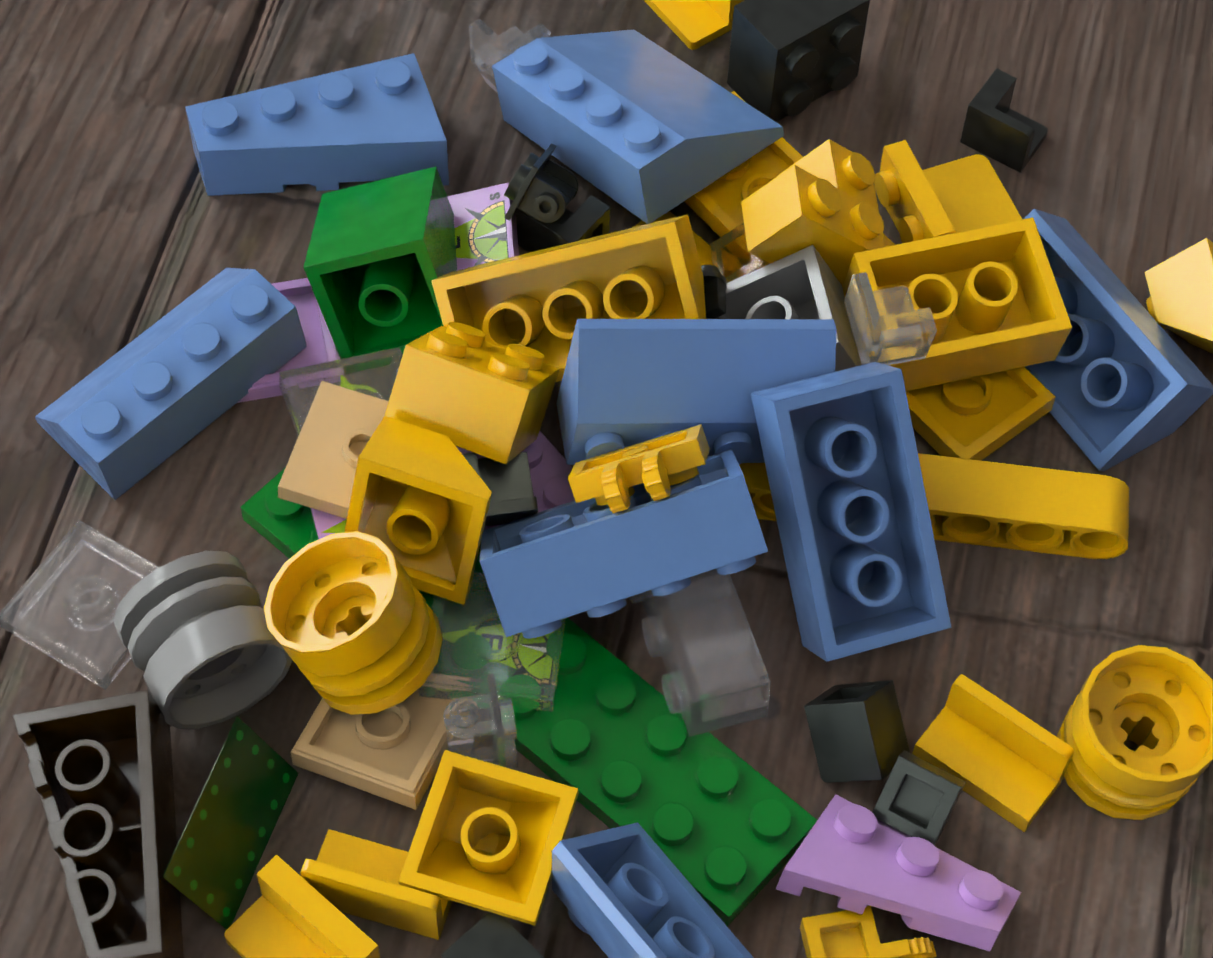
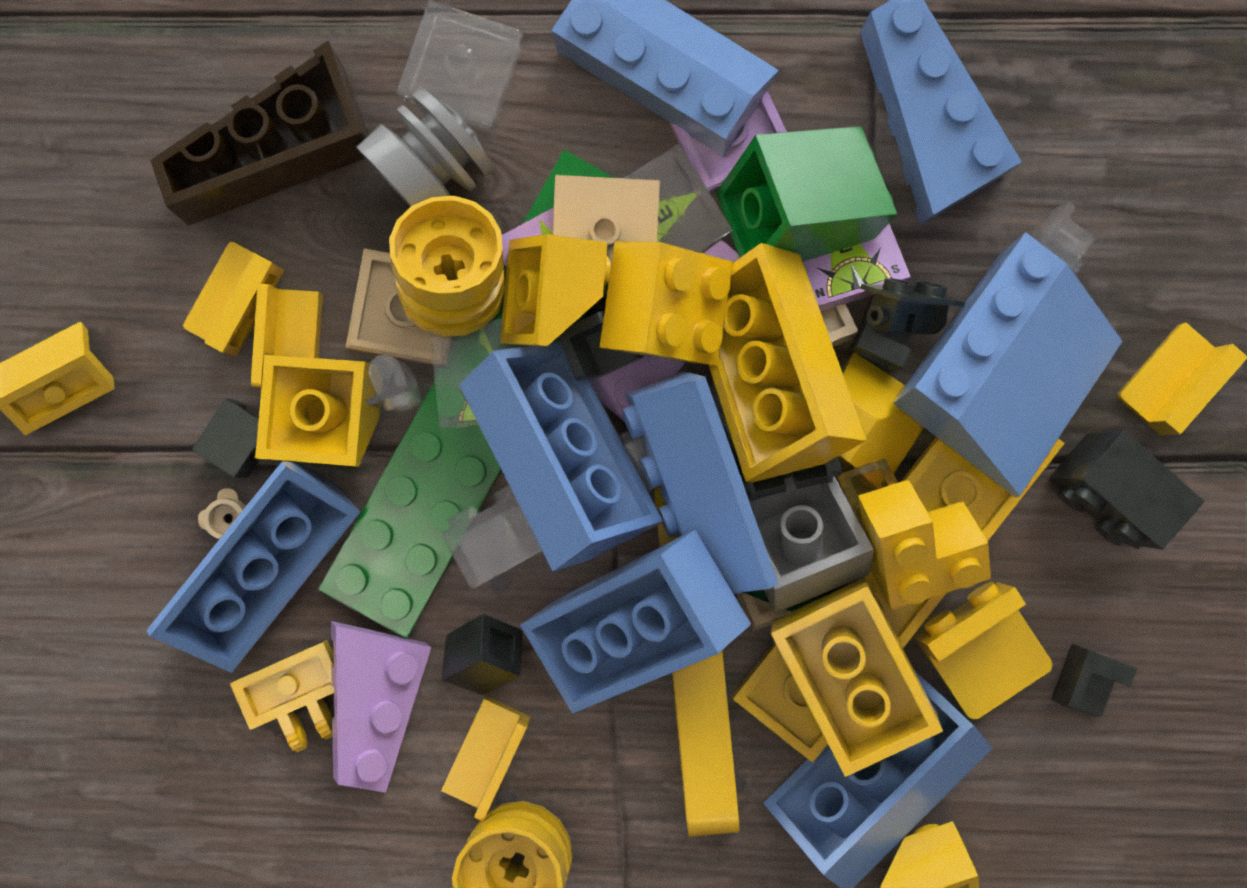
camera: 75 degrees right, 30 degrees up
(231, 824) = (296, 222): dark green sticker -> none
(652, 462) = (609, 455): yellow hinge -> none
(887, 324) = (799, 627): clear panel -> none
(918, 798) = (433, 710): pearl dark grey tile -> none

